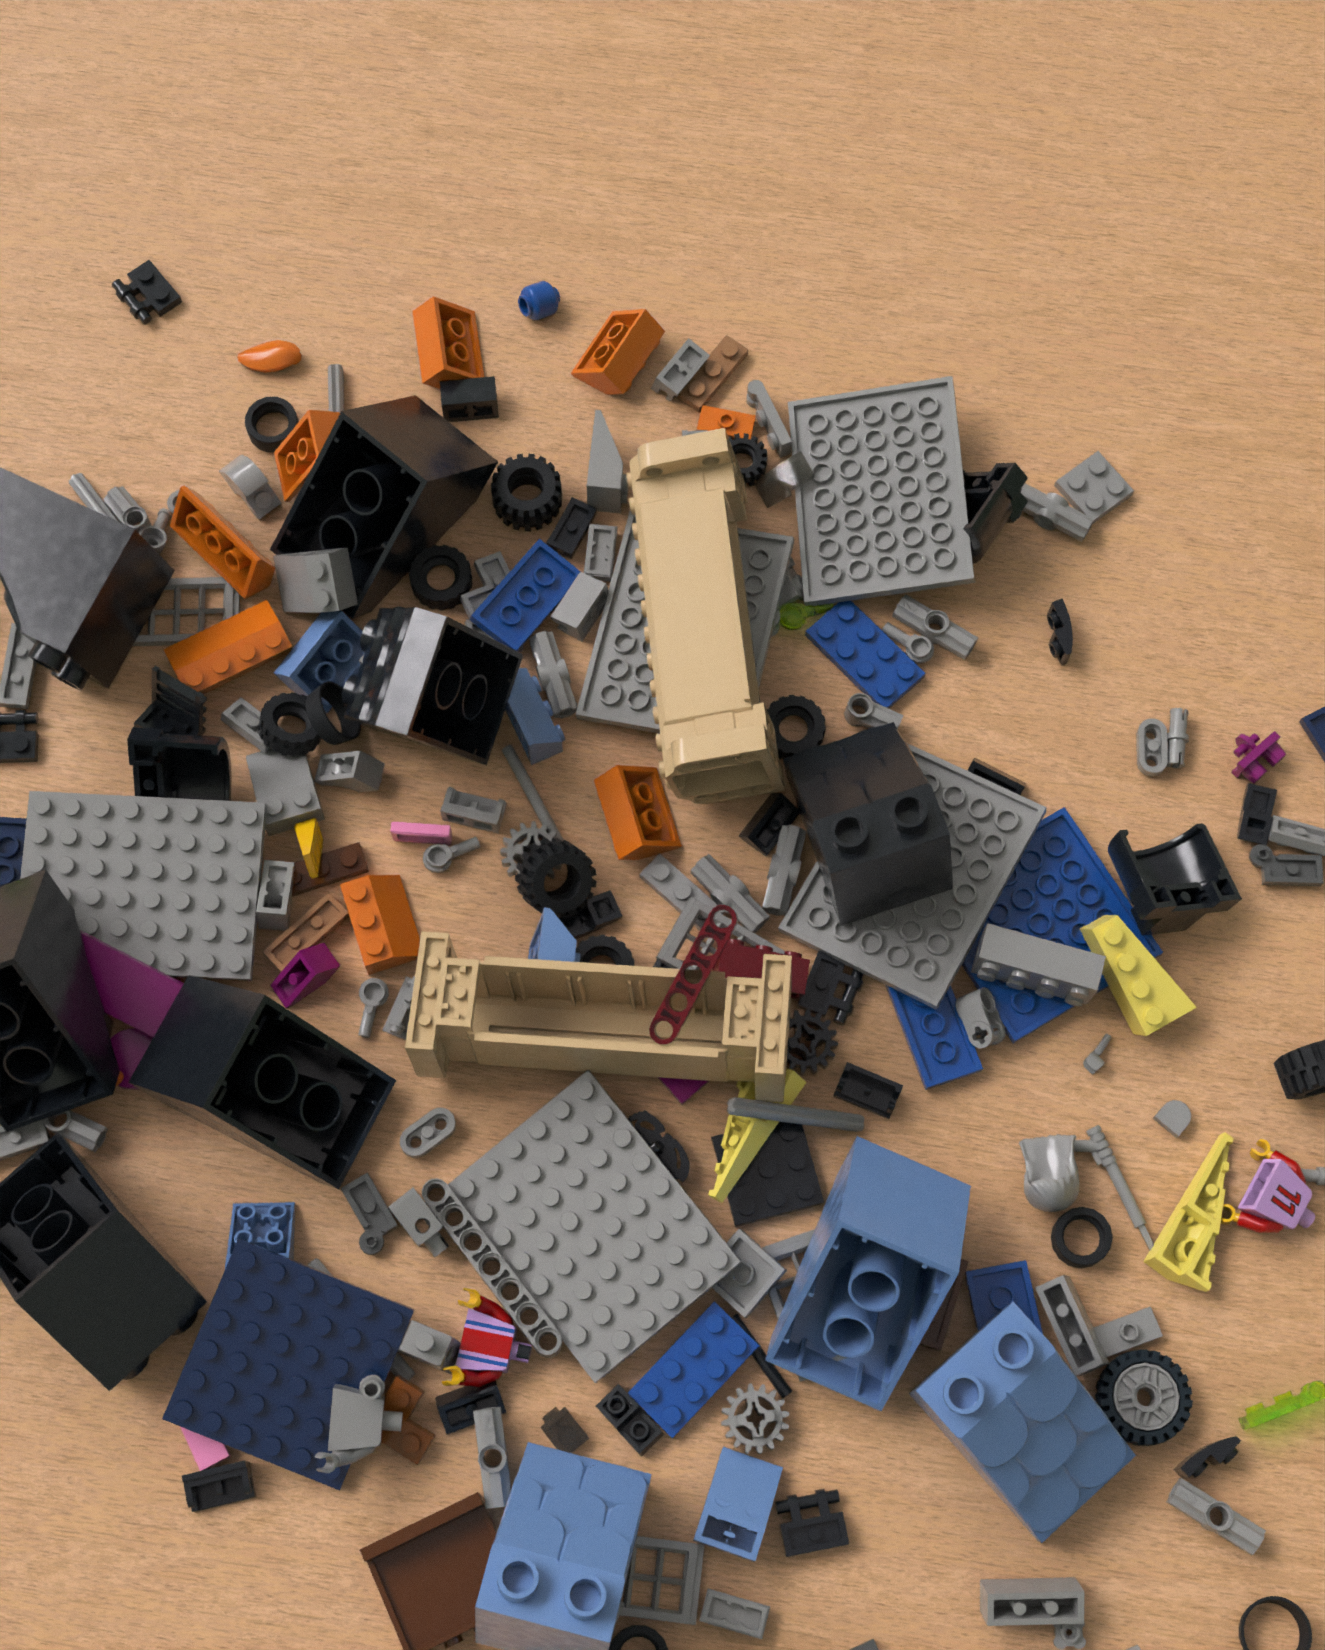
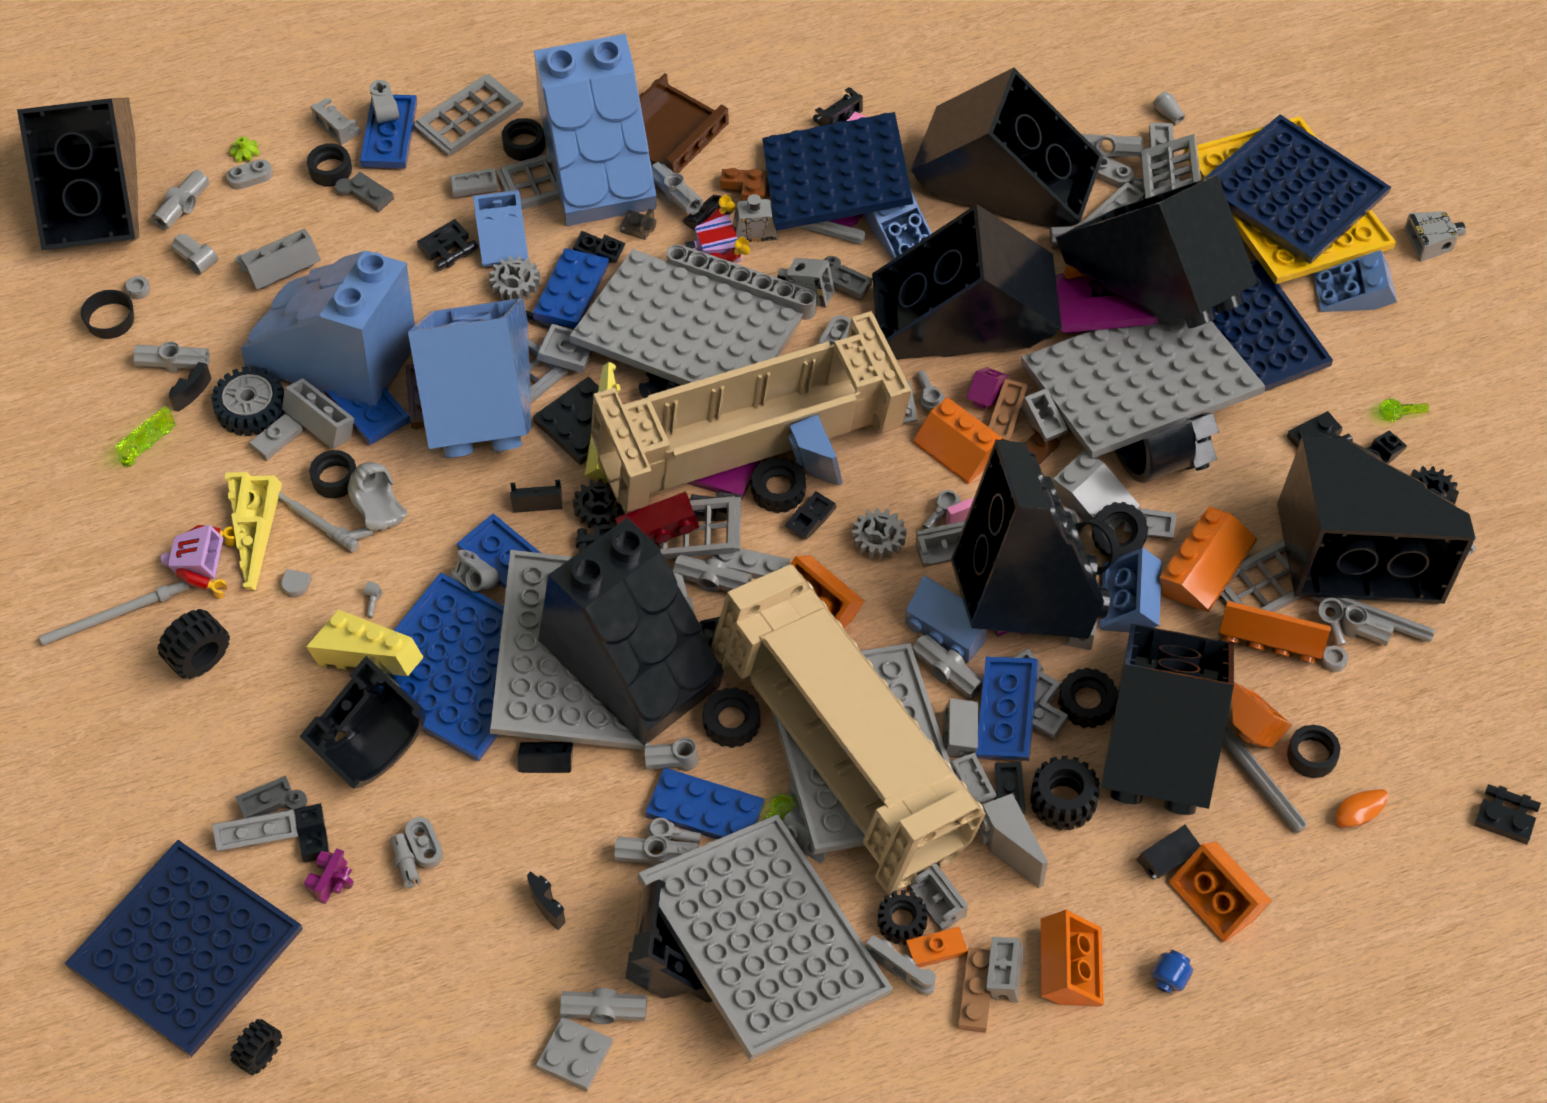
camera: 155 degrees right, 15 degrees down
(173, 707) = (1210, 492): black plate -> none
(251, 484) = (1293, 686): light grey brick -> none
(311, 844) = (1046, 456): yellow slope -> none
(315, 581) = (1171, 623): light grey slope -> none
(357, 1422) = (771, 153): light grey torso -> none
(530, 789) = (890, 570): light grey bar -> none
(537, 865) = (847, 511): black tyre -> none
(682, 985) = (695, 436): dark red beam -> none
(783, 478) = (853, 915): clear smoke slope -> none
(795, 1114) = (561, 455): light grey axle -> none
(1037, 965) = (446, 609): light grey brick -> none

